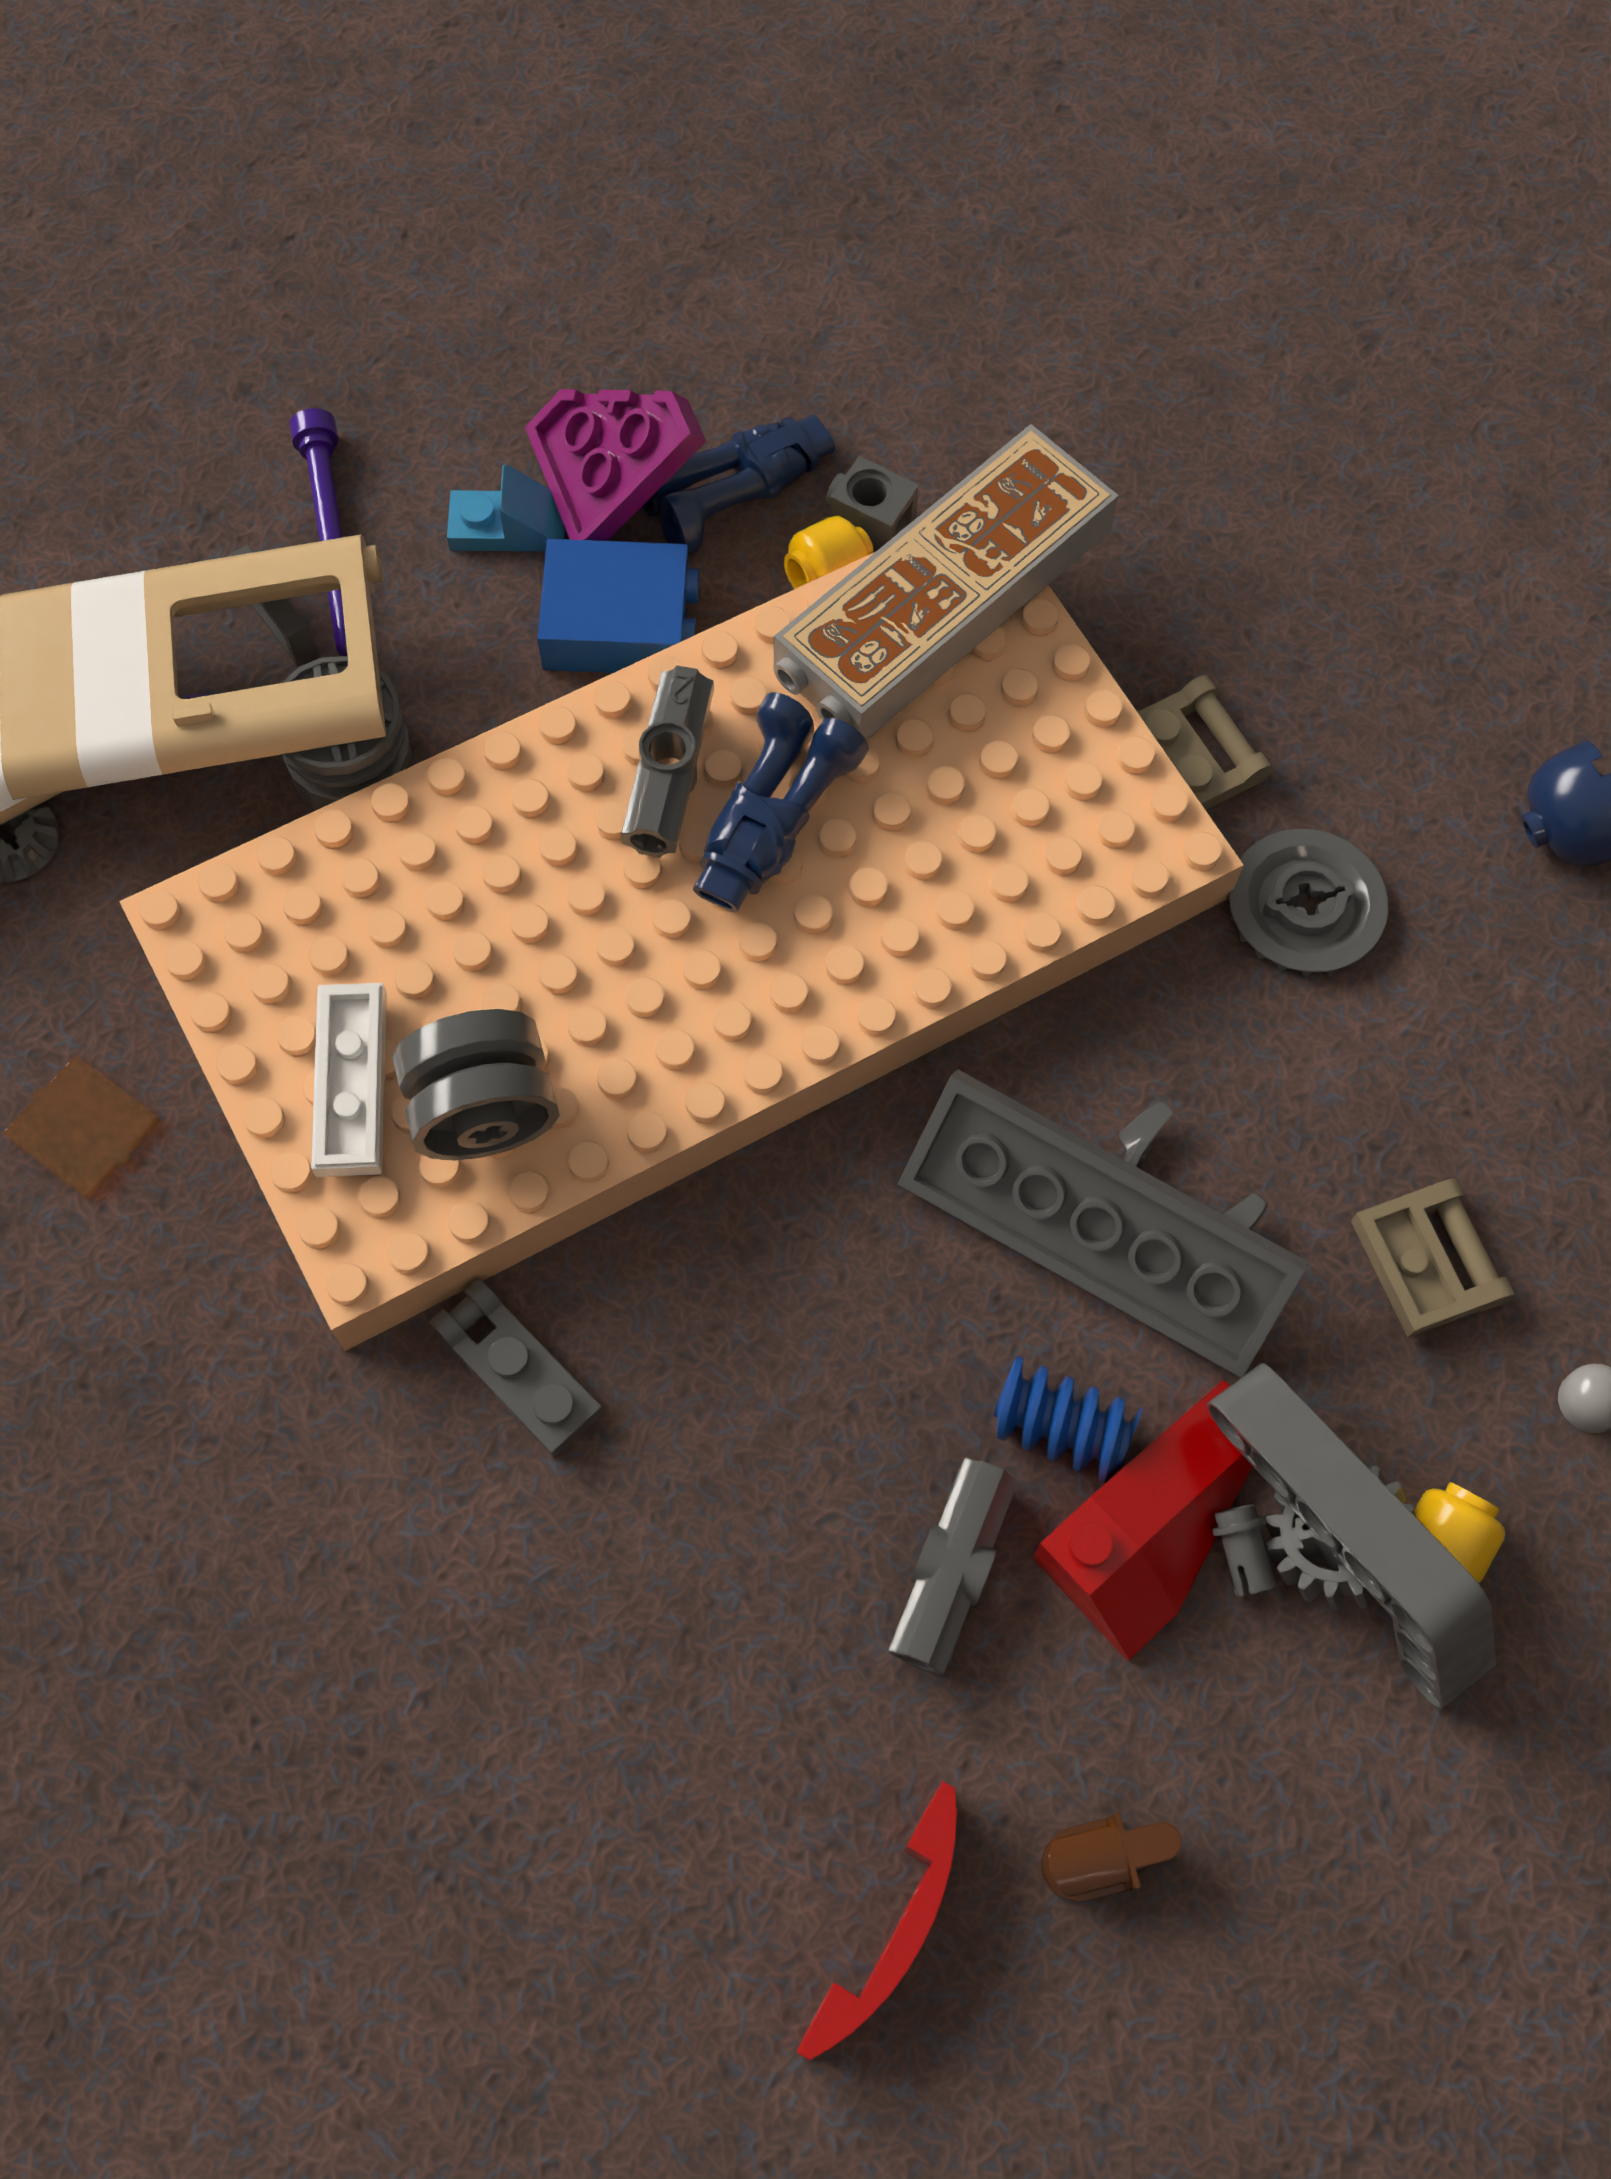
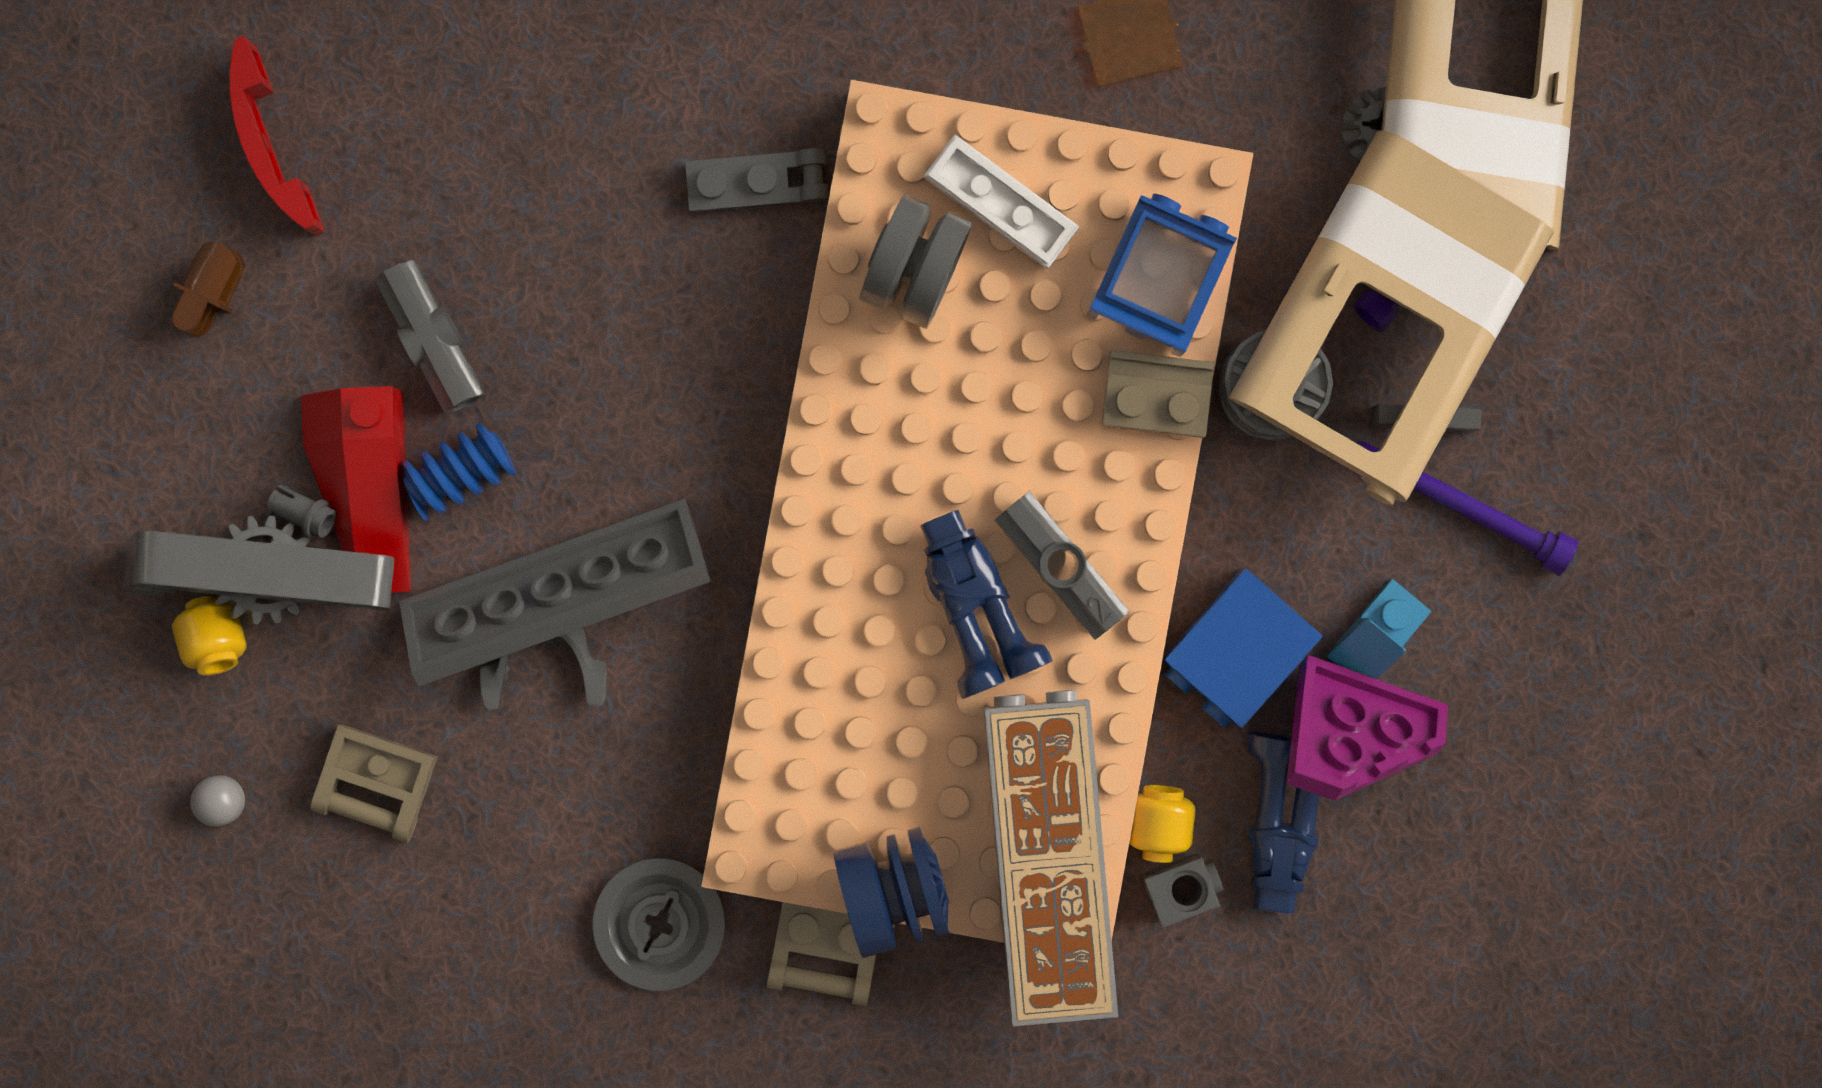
camera: 130 degrees right, 20 degrees up
(306, 876) = (1163, 272): none -> window
(432, 805) = (1157, 394): none -> dark tan plate
(1088, 664) = (891, 892): none -> dark blue wheel

